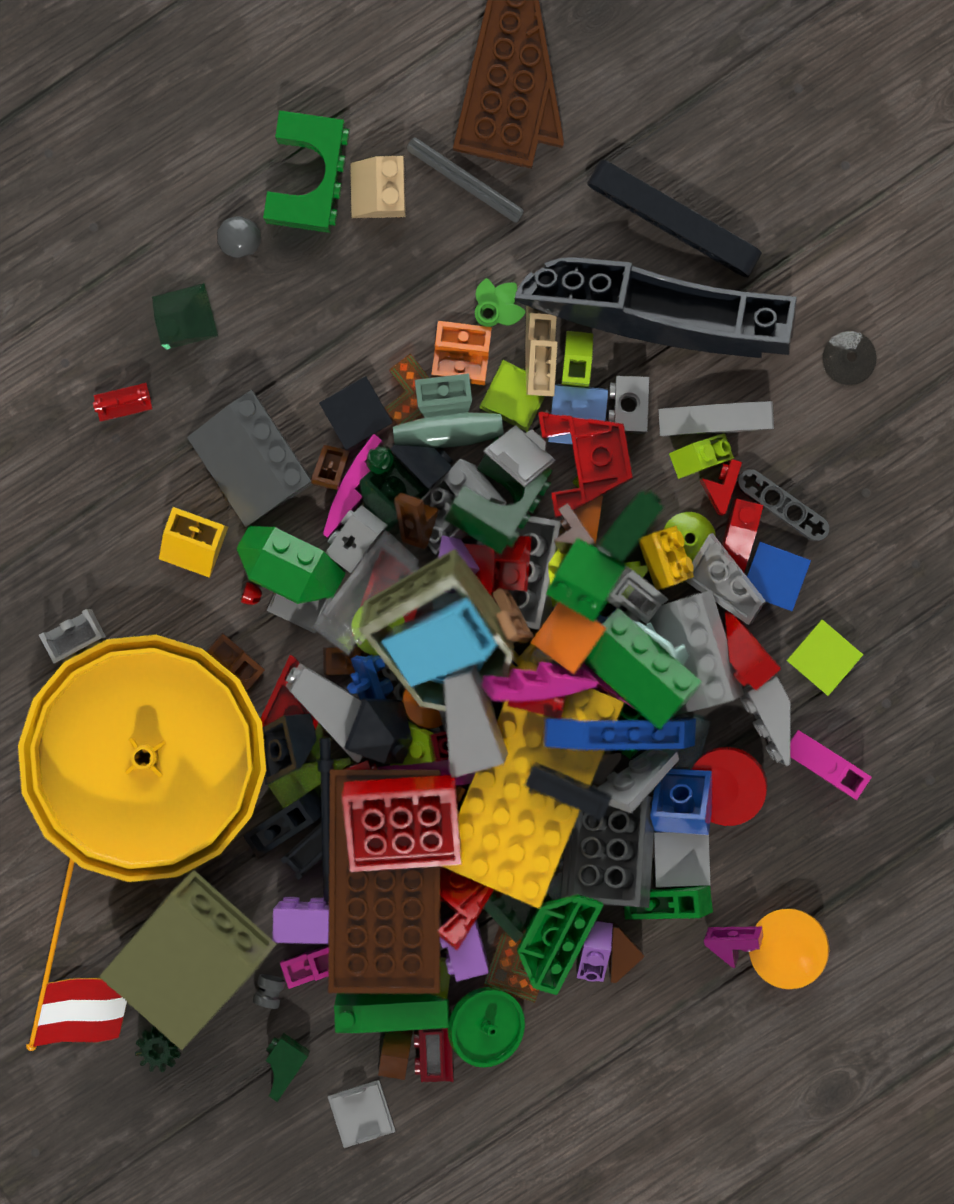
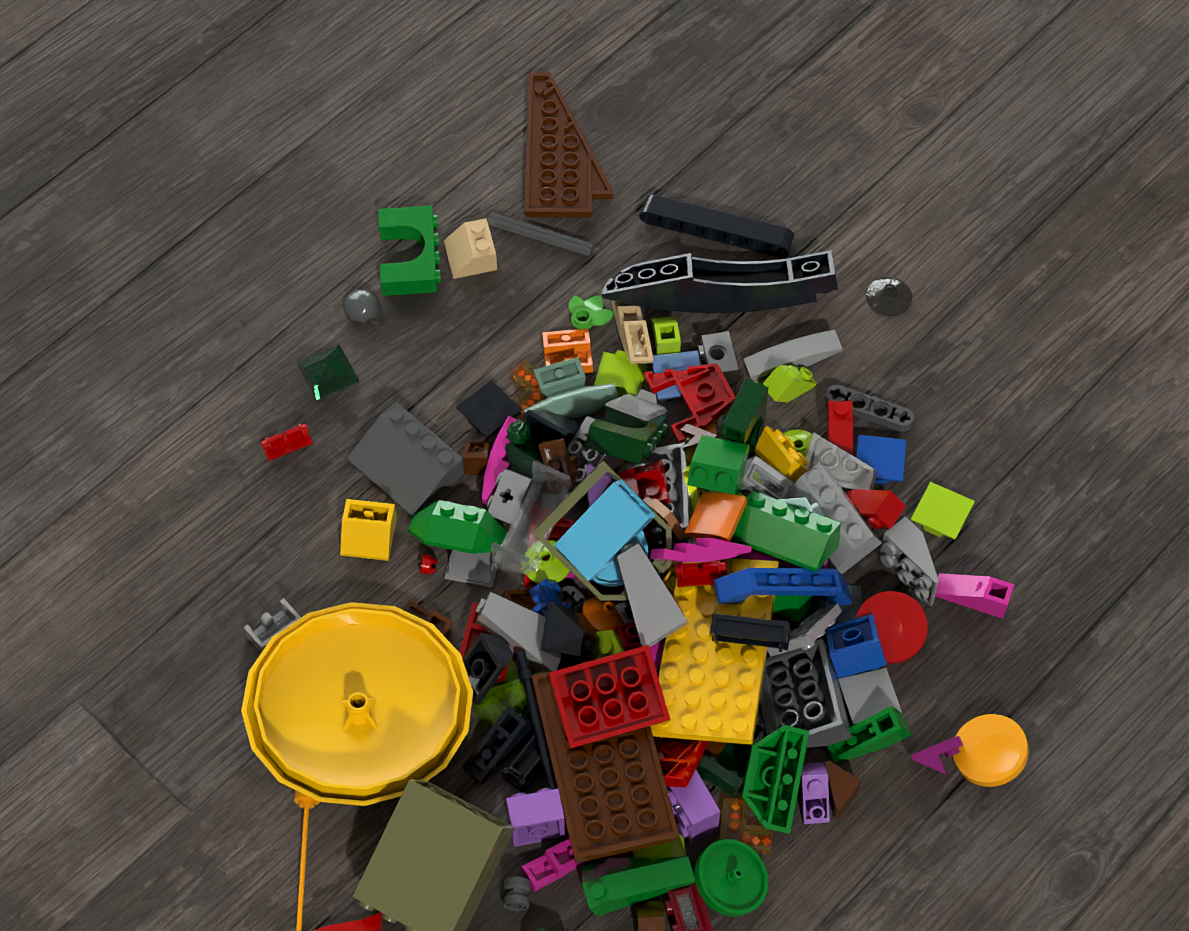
camera: 10 degrees left, 30 degrees down
(721, 493) = (812, 405): red slope -> none

